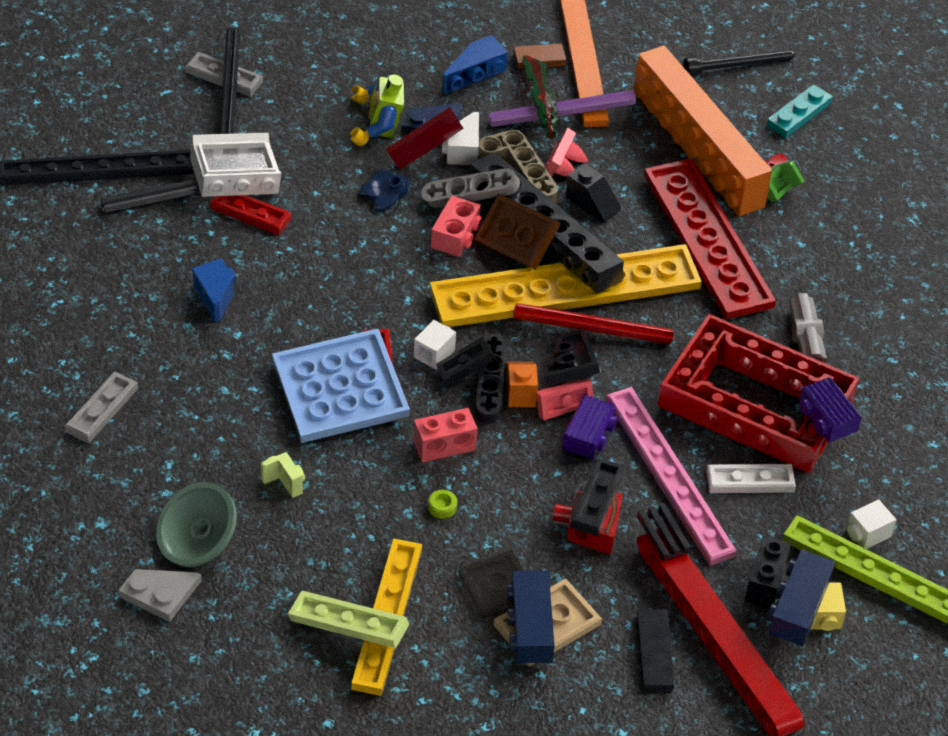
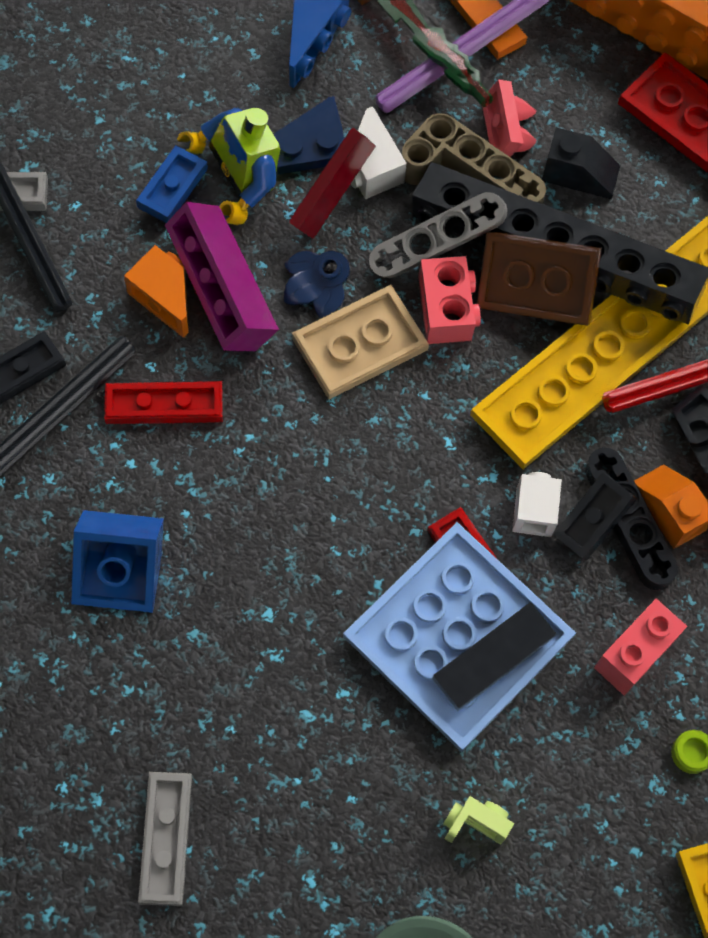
camera: 30 degrees left, 20 degrees up
(166, 267) = (116, 560): none -> blue slope
(214, 286) = (198, 559): blue slope -> none
(234, 164) = (106, 346): white window -> none
(289, 153) = (160, 287): none -> orange slope
(326, 160) = (221, 277): none -> magenta brick
(332, 109) = (171, 184): none -> blue plate
(351, 396) = (494, 656): none -> black tile
(389, 228) = (360, 341): none -> tan tile

